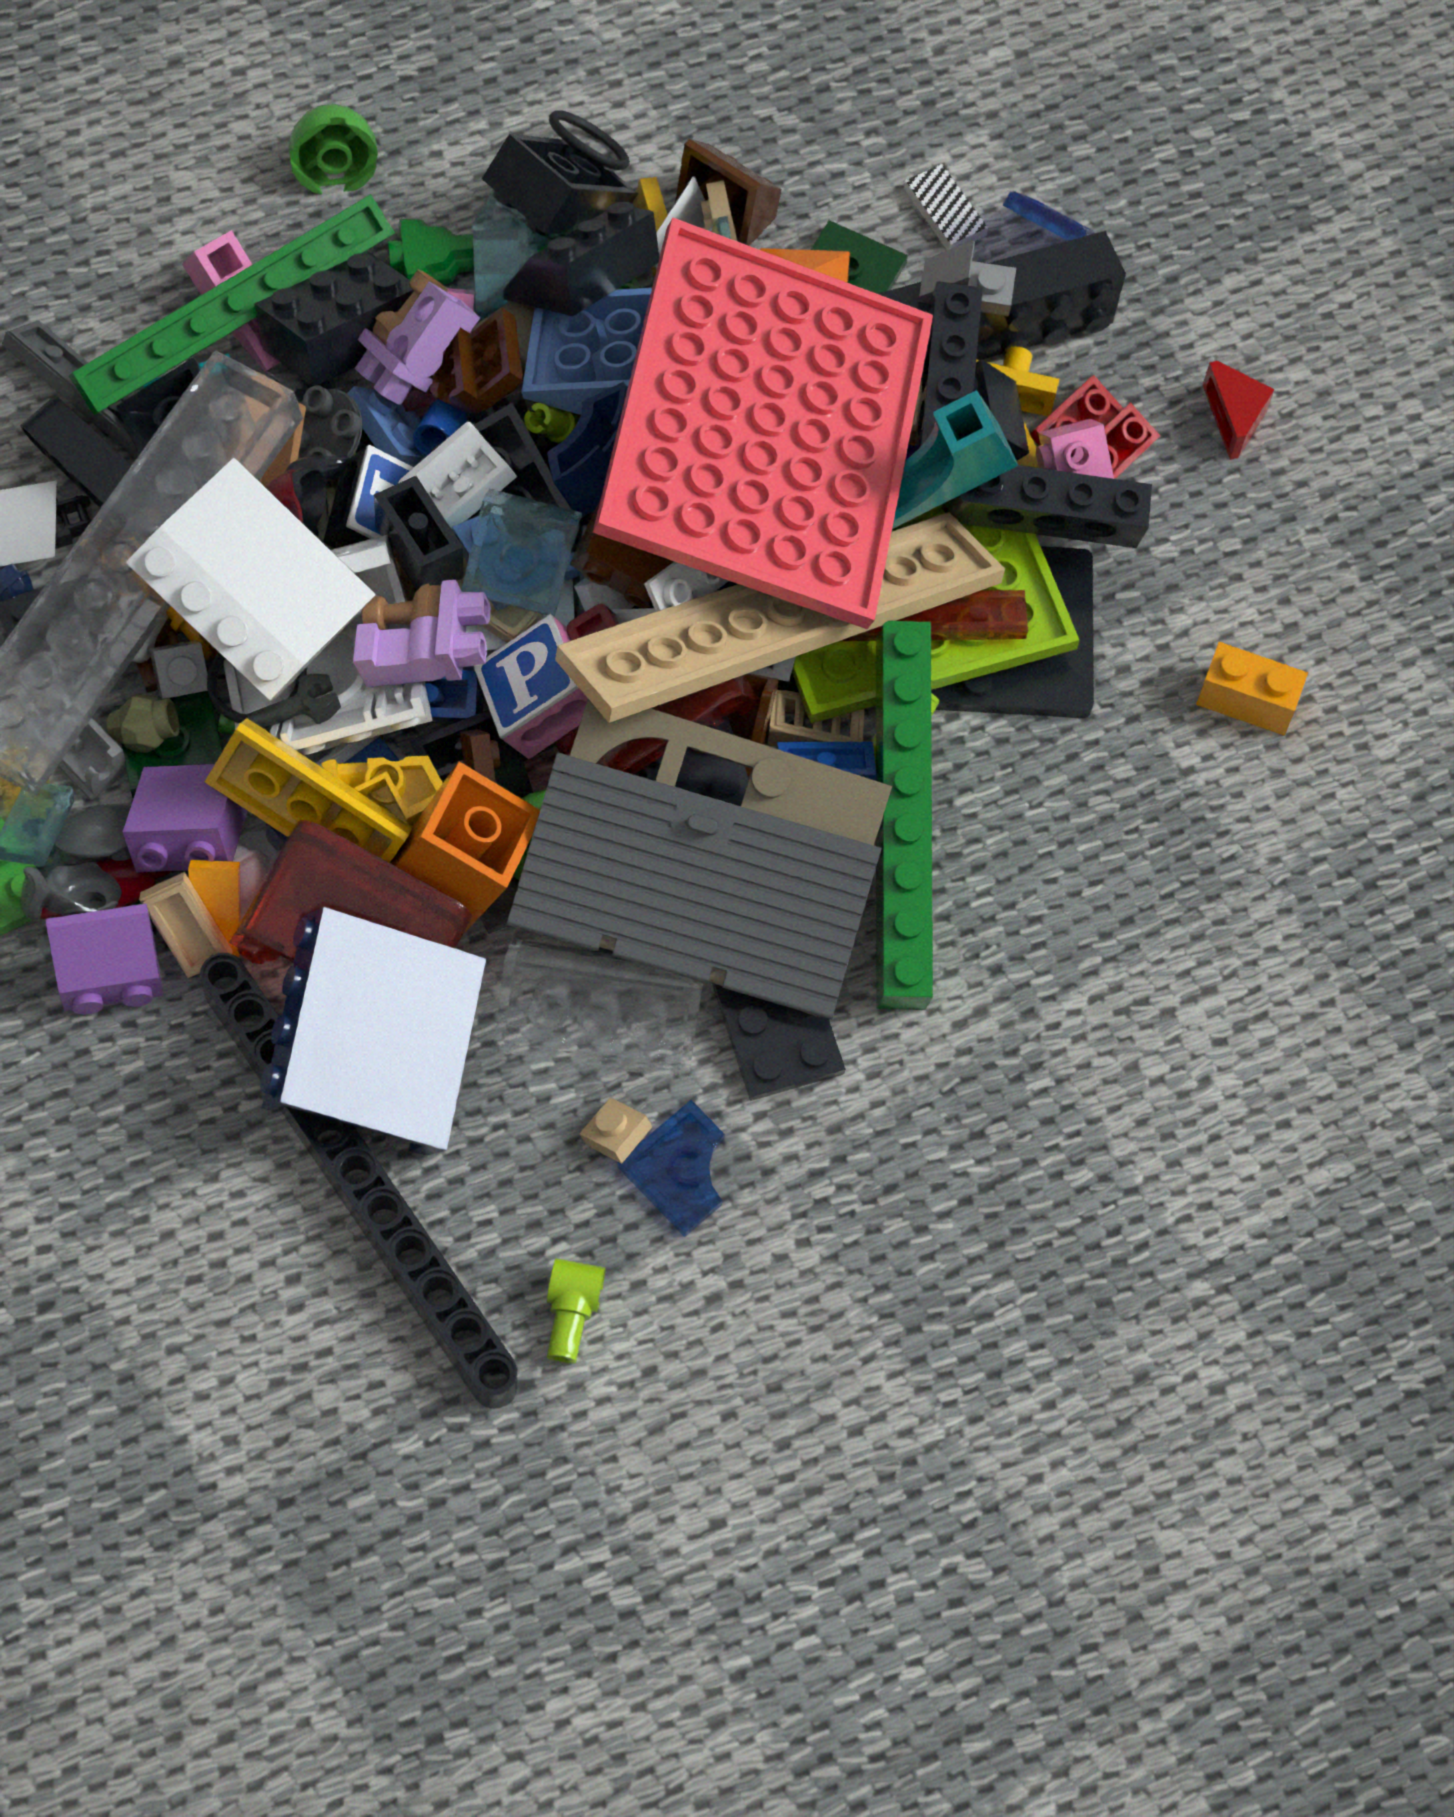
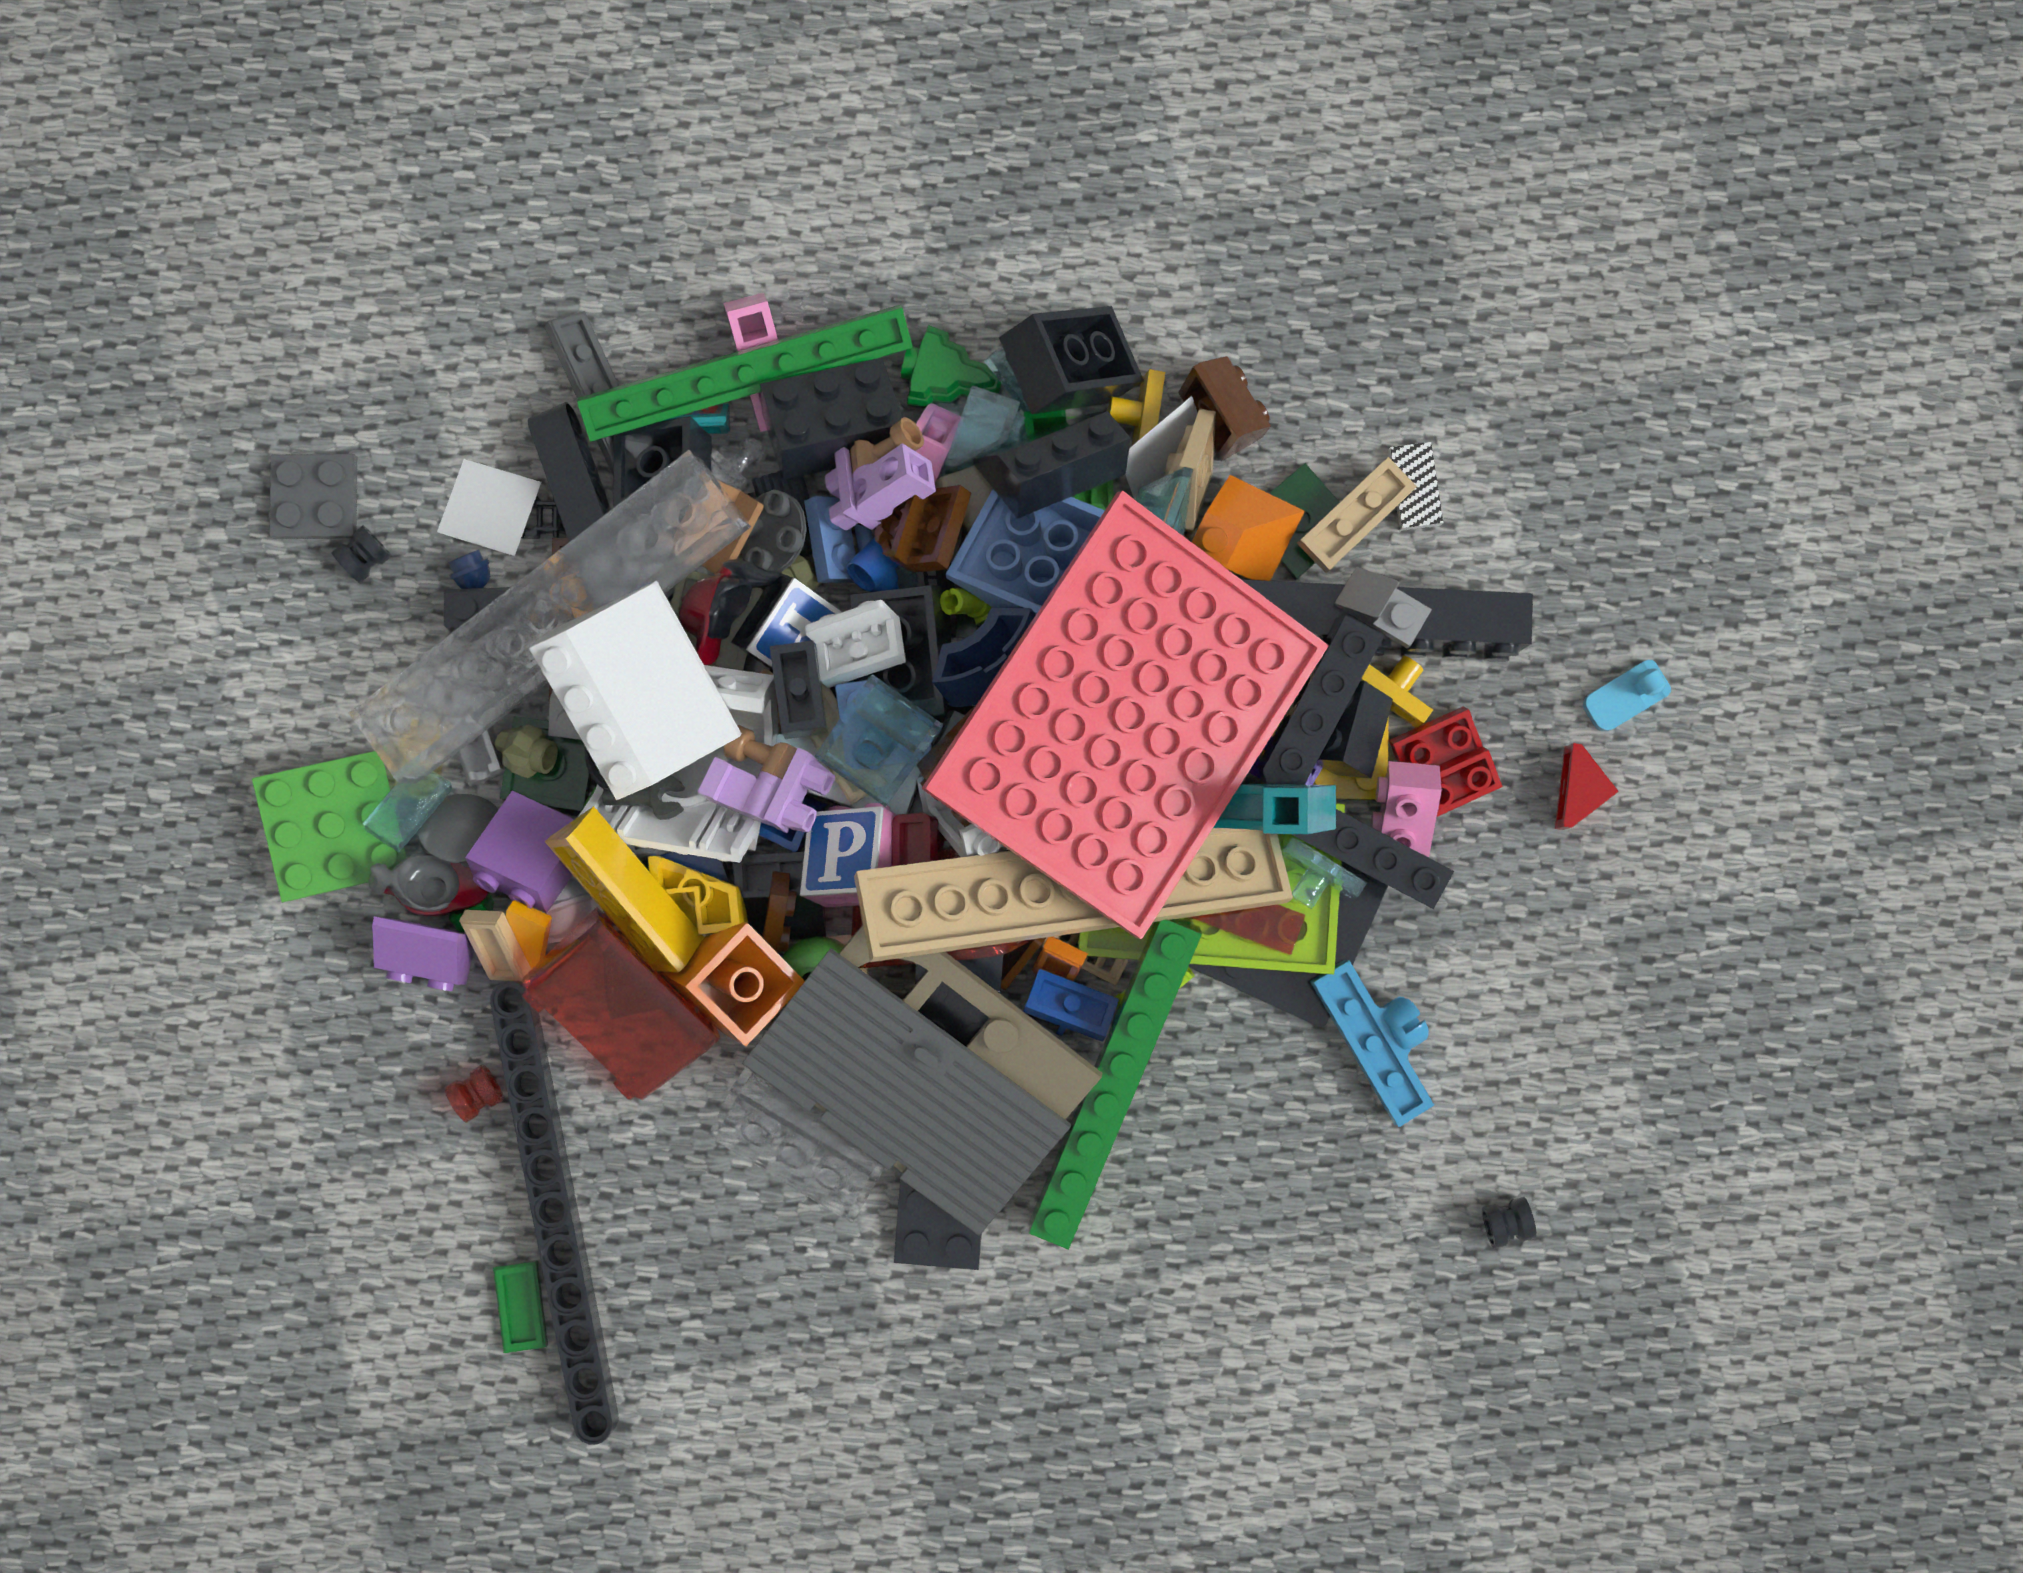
camera: 25 degrees right, 20 degrees up
(218, 1091) = (474, 1093): none -> clear red wheel
(332, 141) = (896, 232): bright green cylinder -> none
(357, 1299) = (520, 1306): none -> green tile
(374, 1029) = (600, 1113): panel -> none
(573, 1295) = (684, 1376): lime pin -> none
(584, 149) = (1105, 322): black tyre -> none
(616, 1130) = (774, 1248): tan plate -> none
(675, 1165) = (809, 1295): clear blue tile -> none
(795, 717) = (1060, 959): none -> orange tile
(902, 239) = (1357, 515): none -> tan plate
(1022, 542) = (1318, 874): none -> clear light blue tile
(1046, 216) = (1499, 547): clear blue tile -> none
(1152, 697) = (1378, 1039): none -> dark azure plate
(1240, 317) = (1626, 696): none -> medium azure piece
(1252, 688) = (1467, 1064): light orange brick -> none
(1366, 824) = (1505, 1223): none -> black wheel

